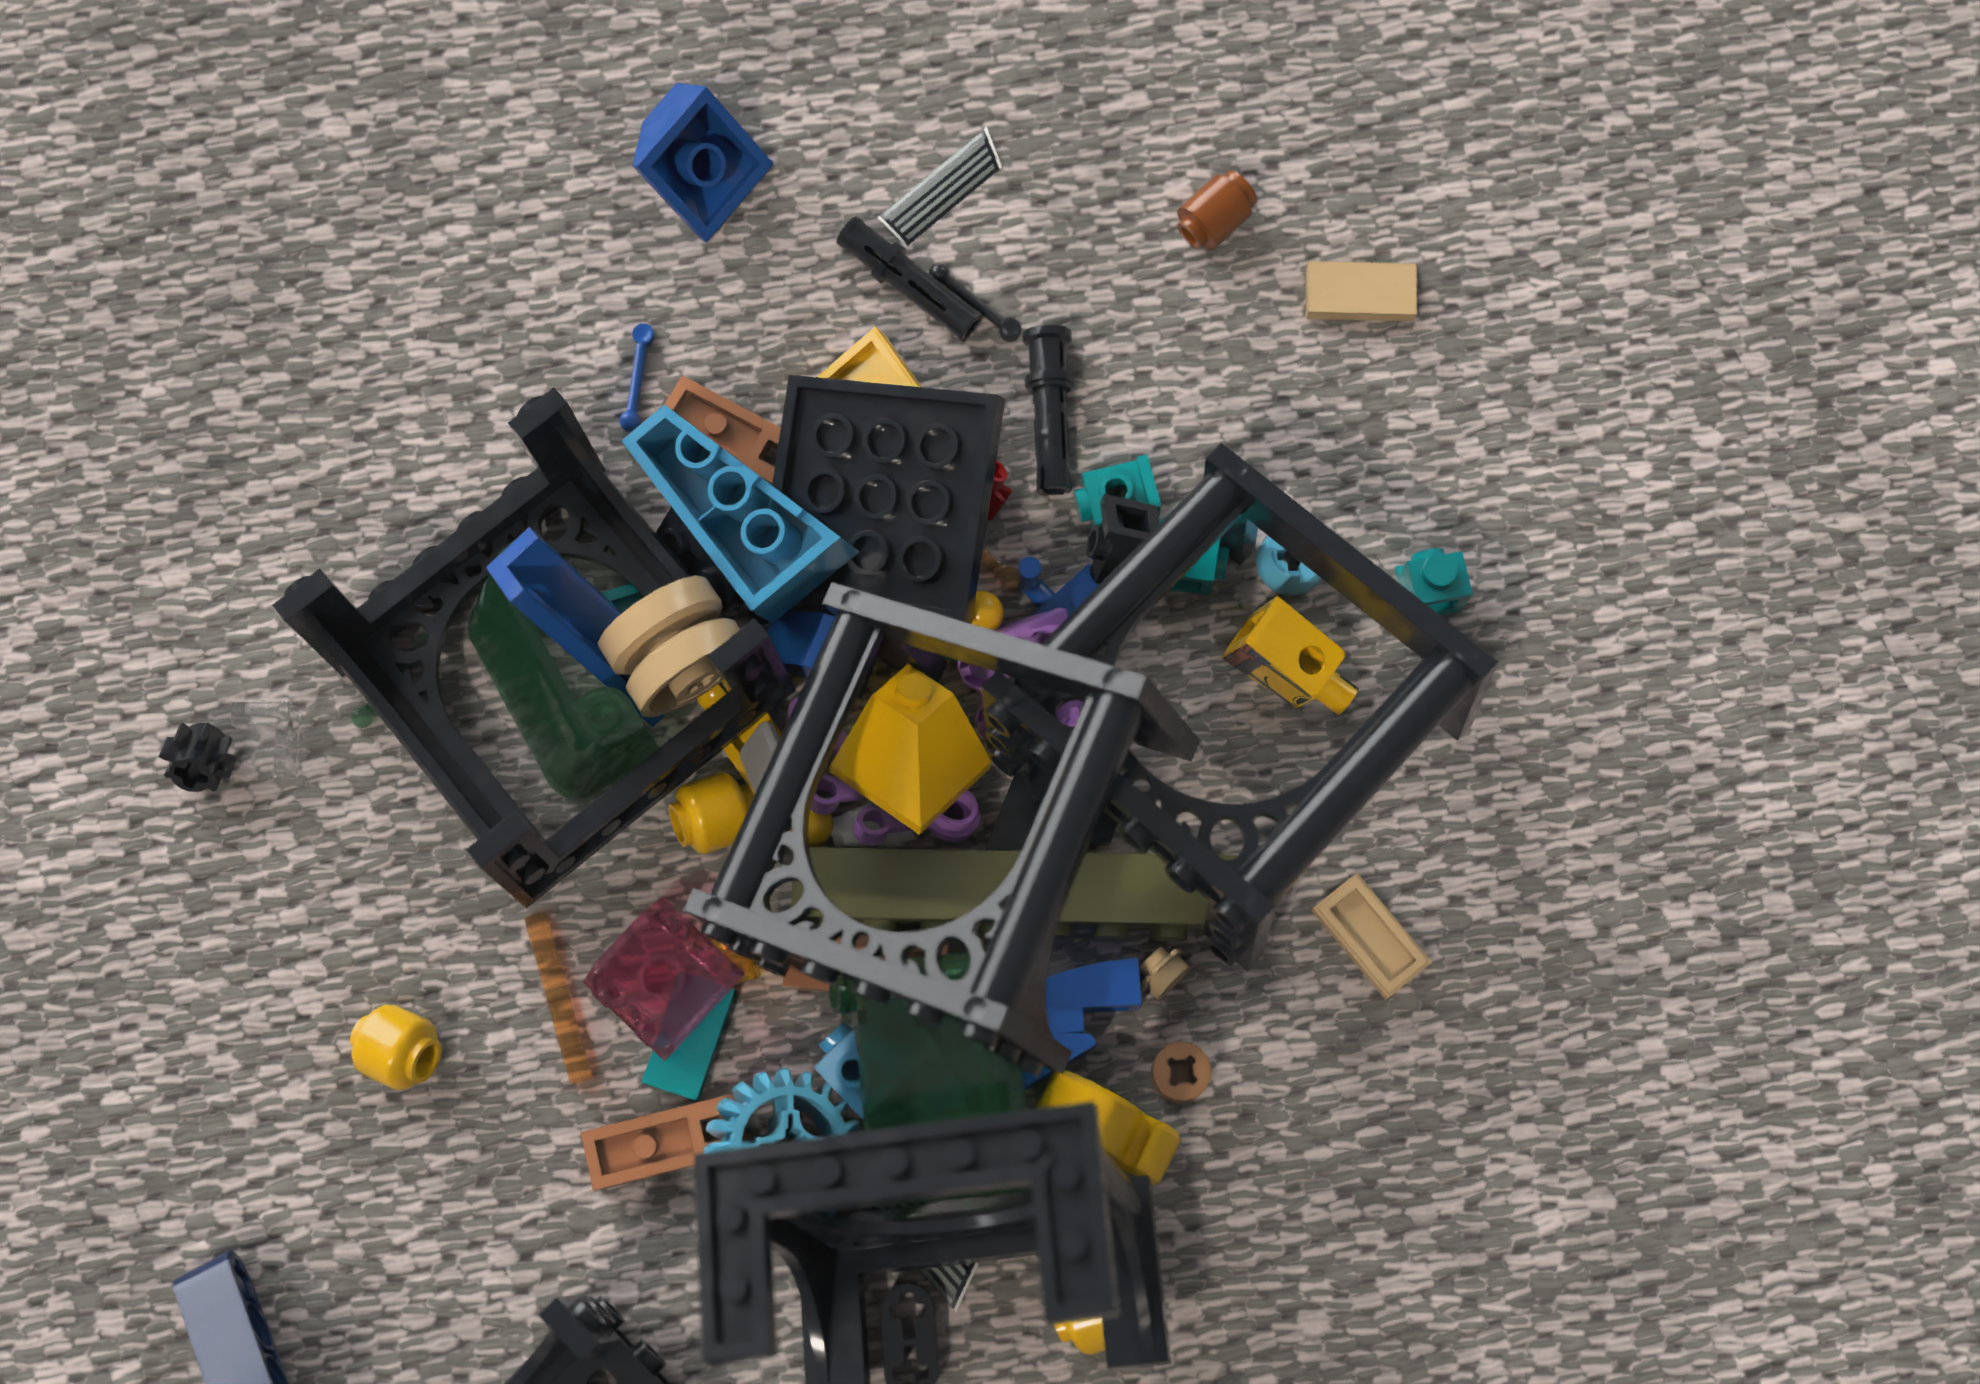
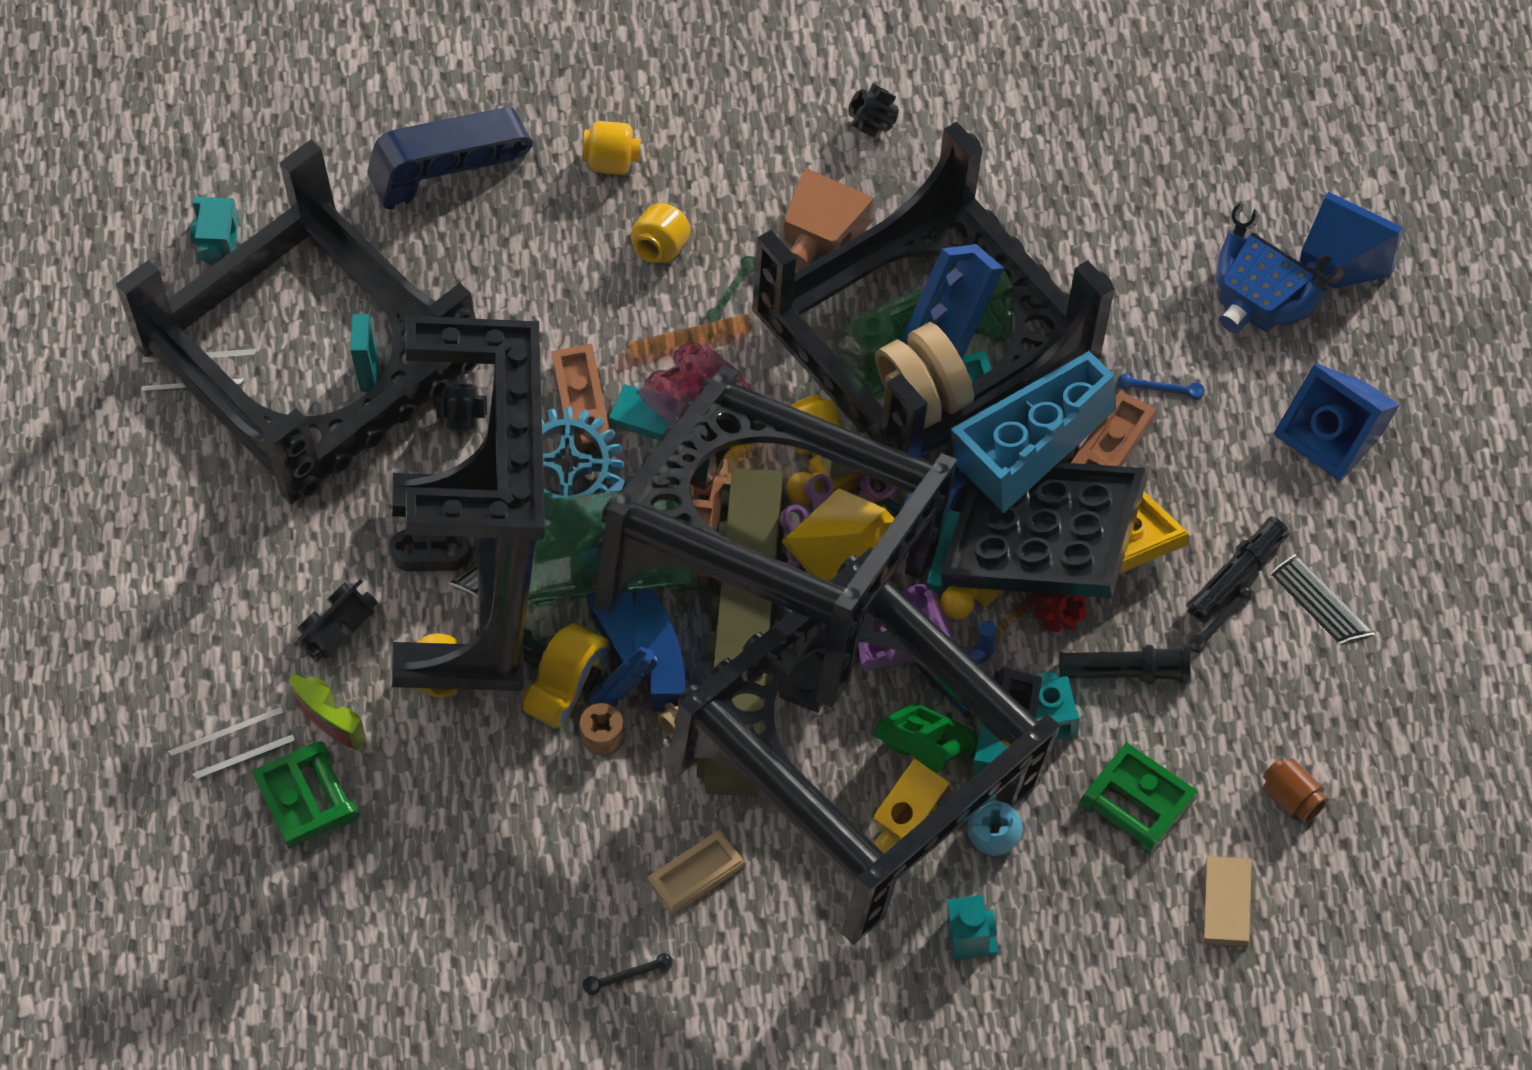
camera: 95 degrees right, 15 degrees down
(247, 1130) = (610, 147): none -> yellow head
(375, 819) = (824, 216): none -> nougat torso
(437, 139) = (1354, 240): none -> blue slope
(441, 924) = (747, 265): none -> clear green hinge
(488, 243) = (1264, 282): none -> blue torso
(677, 1315) = (461, 406): none -> black gear
(1116, 1045) = (625, 677): none -> blue axle
(1179, 659) = (916, 731): none -> green plate
(1220, 381) = (1147, 787): none -> green plate
(1537, 1060) = (593, 985): none -> black hinge

